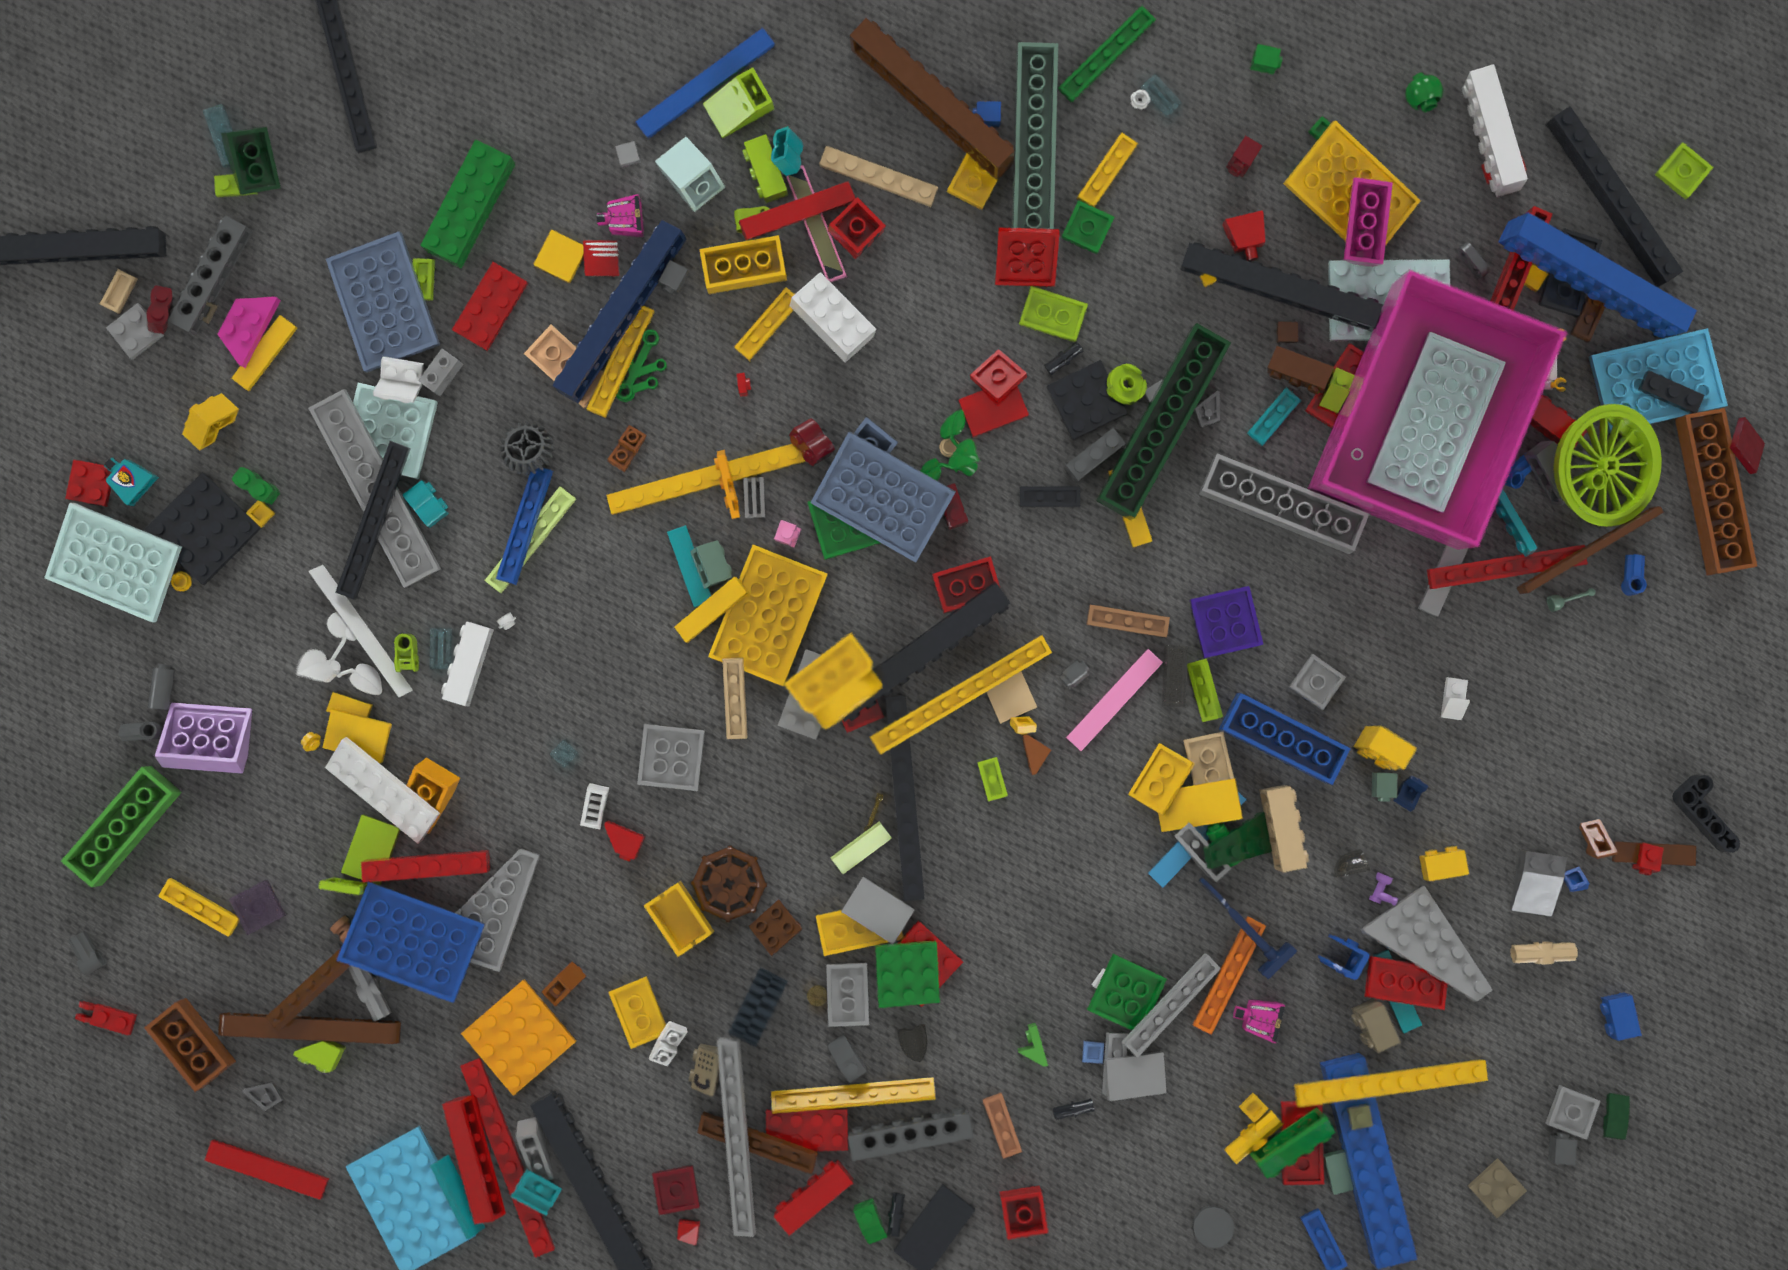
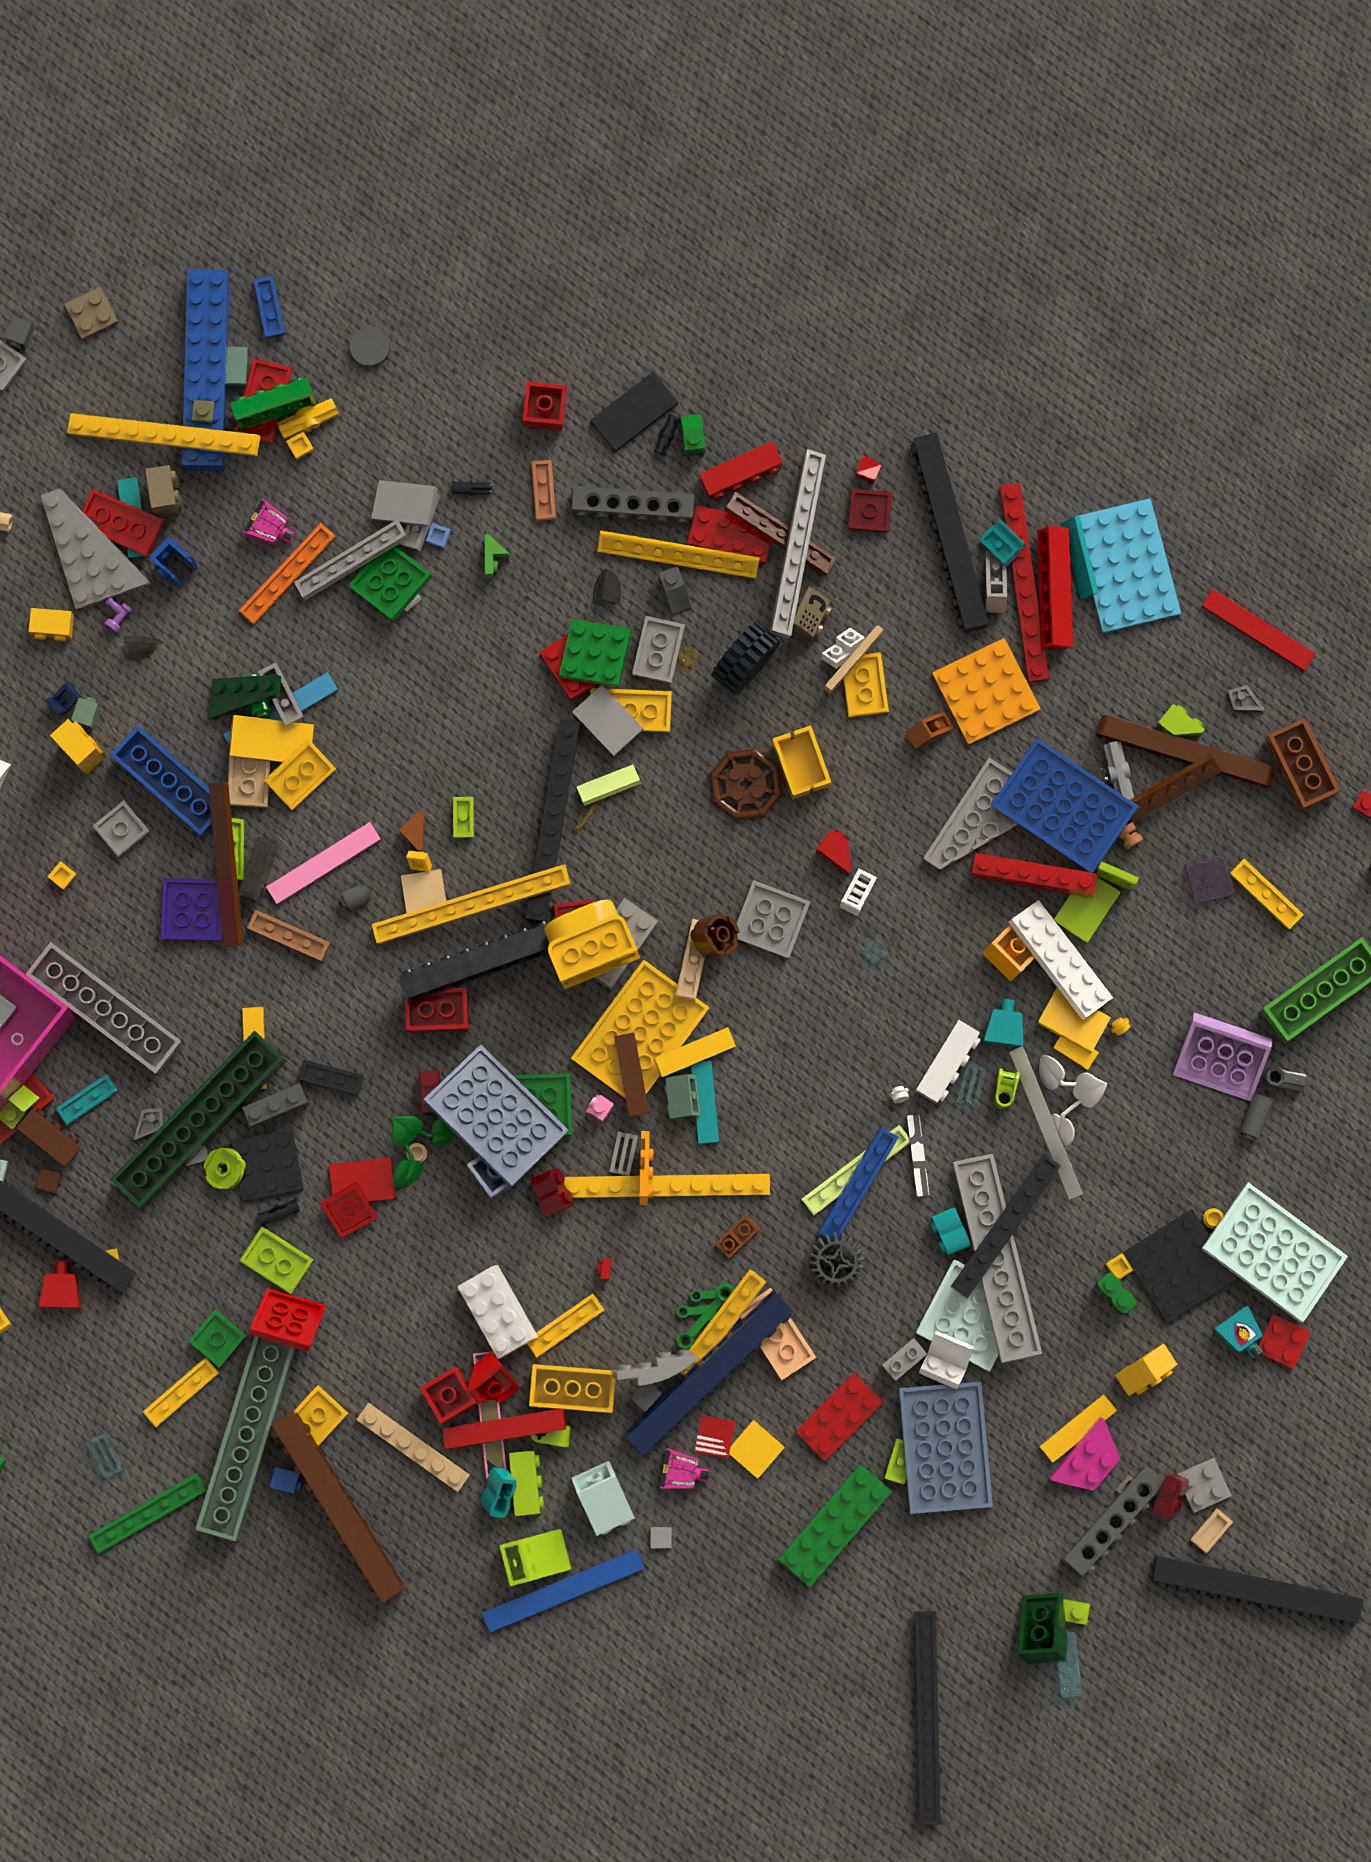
camera: 165 degrees left, 5 degrees down
(421, 712) = (1005, 1026): none -> teal torso
(475, 568) = (918, 1155): none -> sticker
(659, 1022) = (854, 659): none -> tan tile
(661, 302) = (663, 1367): none -> light grey slope
(718, 725) = (715, 935): none -> reddish brown brick
(764, 572) = (631, 1074): none -> reddish brown tile
(775, 927) = (711, 730): reddish brown hinge -> none
(821, 251) = (491, 1380): none -> red slope
(1140, 94) = (122, 1456): white plate -> none
(1208, 671) = (225, 864): none -> reddish brown tile
(1243, 157) = (42, 1365): dark red brick -> none
(1275, 958) = (239, 578): dark blue piece -> none
(1284, 828) = (196, 697): tan brick -> none
(1360, 622) = (62, 875): none -> yellow plate

